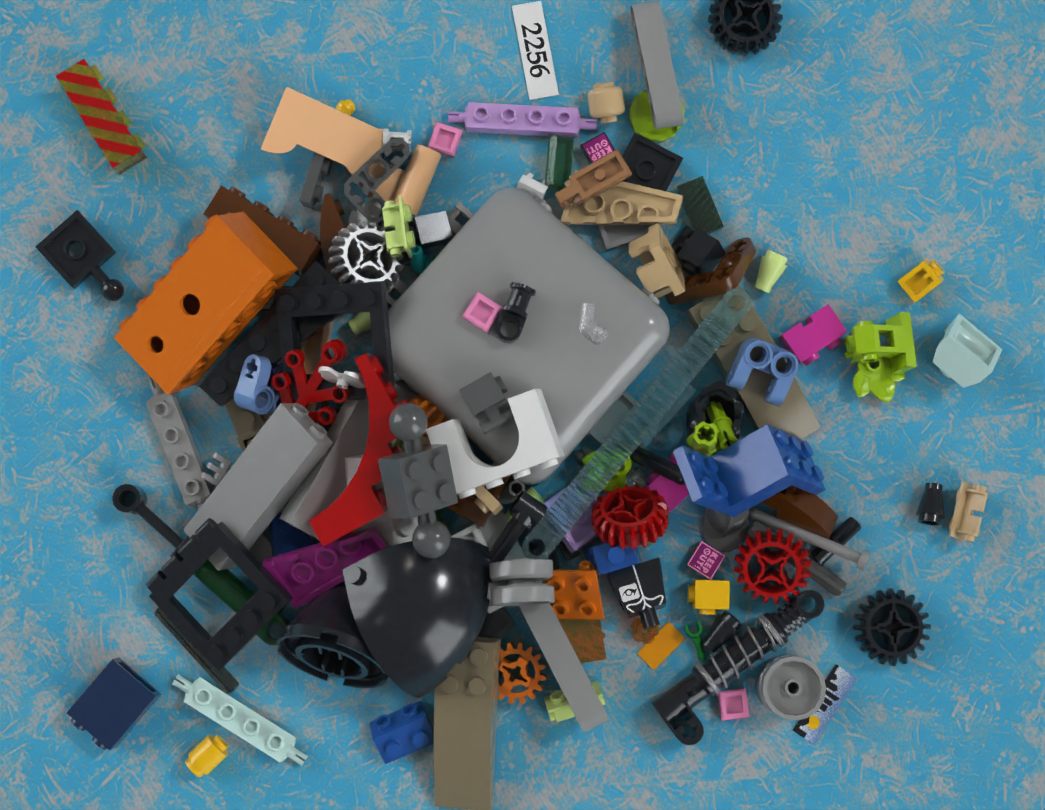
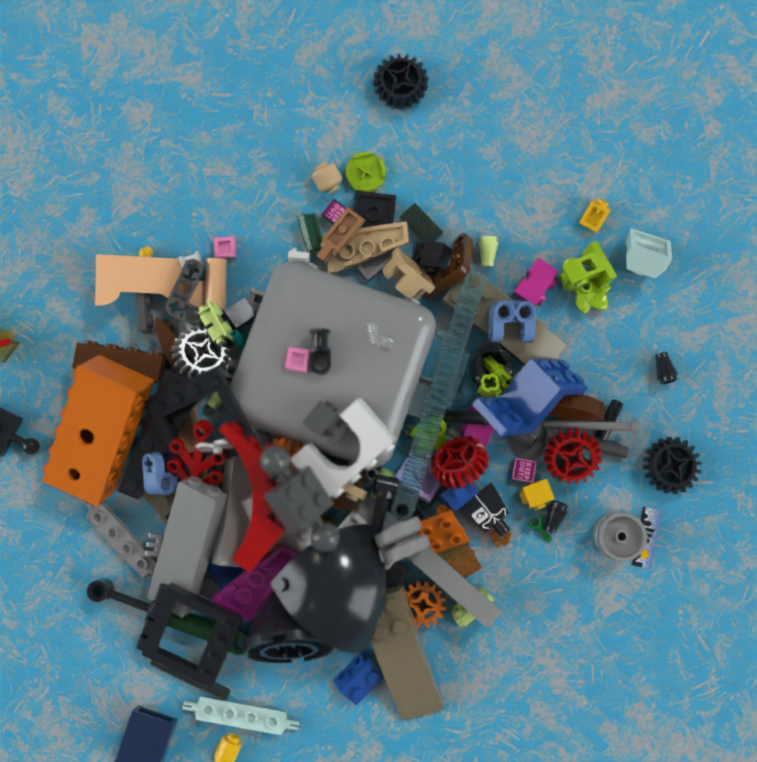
camera: 15 degrees left, 0 degrees up
(522, 119) = (273, 213): lavender plate -> none
(535, 50) = (263, 161): white sticker -> none
(656, 65) = (352, 137): light grey beam -> none
(663, 645) = (517, 543): light orange sticker -> none
(731, 661) = (569, 537): black piece -> none
(733, 704) = (583, 563): bright pink tile -> none
(963, 523) = (692, 373): tan hinge -> none

